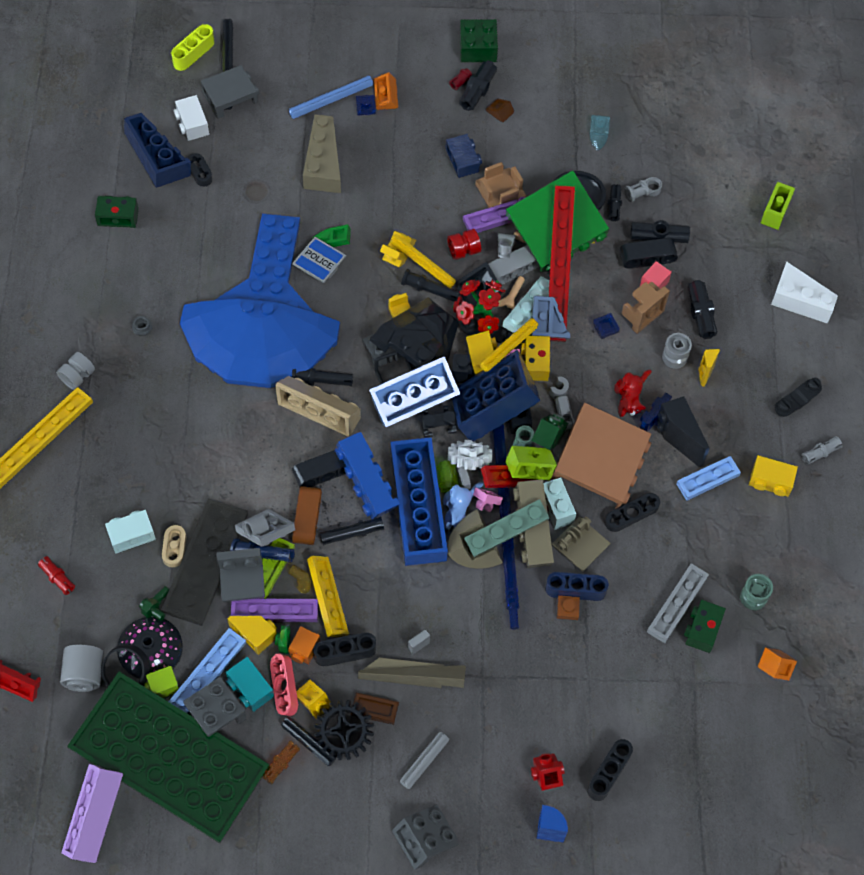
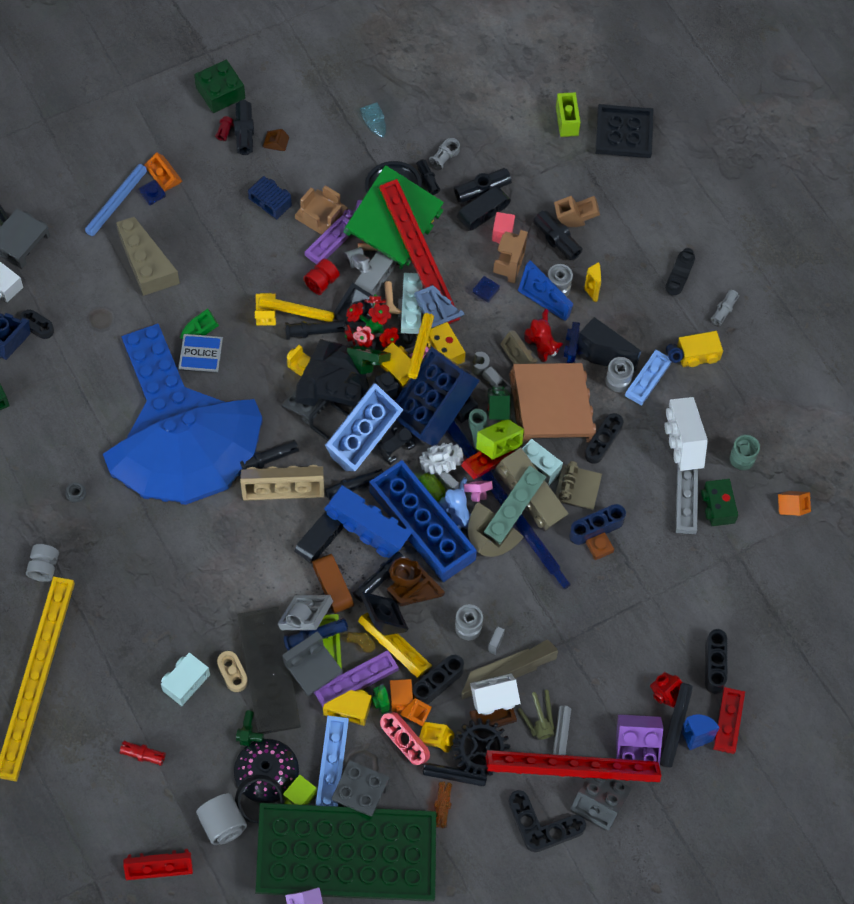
camera: 30 degrees left, 0 degrees up
(250, 684) = (375, 753): teal brick -> none
(307, 667) = (416, 712): none -> orange slope
(332, 565) = (384, 614): none -> black slope
(349, 831) = (536, 830): none -> black beam
(372, 537) = (405, 572): none -> reddish brown hair
(376, 556) = (424, 590): none -> reddish brown wing
(379, 438) = (353, 484): none -> black pin
(384, 688) = (495, 694): none -> white brick
(403, 612) = (468, 622): none -> light grey wheel
(412, 744) = (543, 728): none -> olive plant
(415, 792) = (573, 766): none -> red plate
(457, 333) = (366, 358): none -> dark green slope
(492, 803) = (639, 738): none -> medium lavender slope
(534, 808) = (676, 725): none -> black axle
(589, 831) = (729, 720): none -> red plate
(599, 393) = (516, 349): none -> dark tan plate
(656, 353) = (543, 292): none -> blue wing
(681, 461) = (619, 374): none -> light grey wheel
(708, 545) = (686, 433): none -> white brick
(729, 297) = (575, 213): none -> medium nougat brick
(745, 464) = (674, 353): none -> dark blue pin
(803, 295) = (633, 182): white wedge -> none
(824, 245) = (624, 131): none -> black plate

